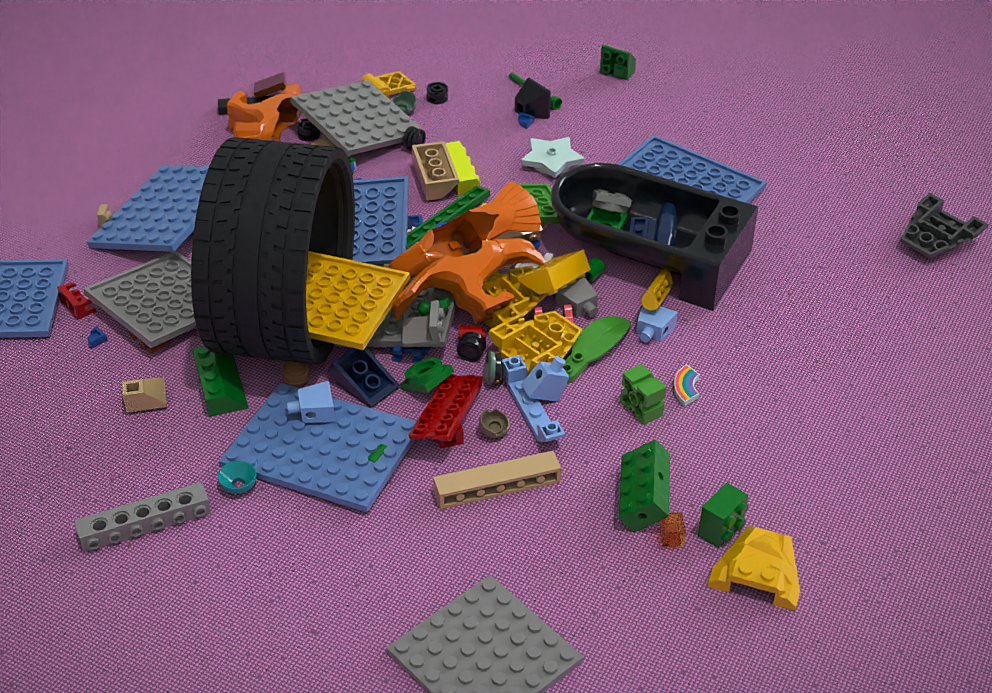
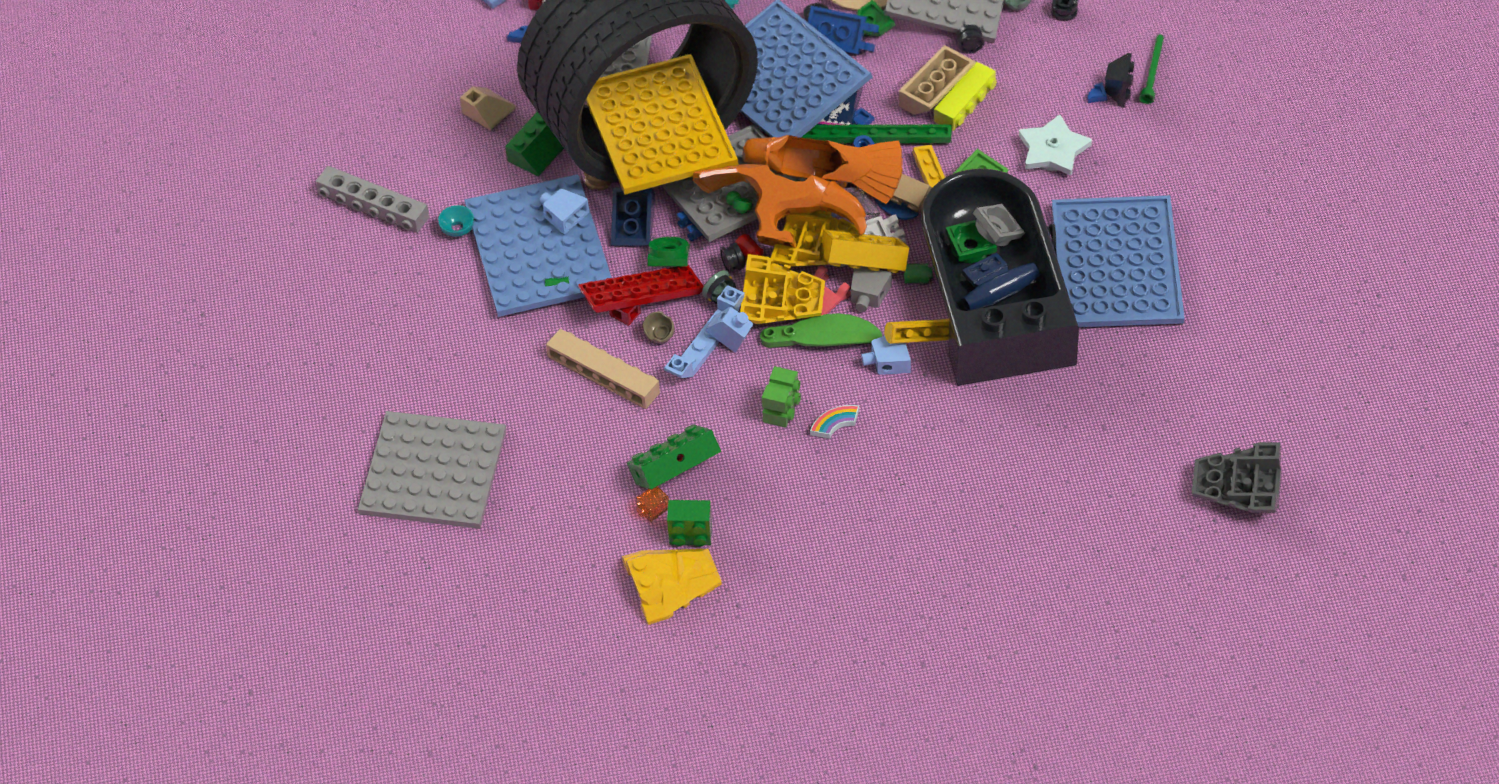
camera: 55 degrees right, 10 degrees up
(424, 329) = (706, 213): light grey bracket -> none
(617, 62) = (1262, 99): green slope -> none

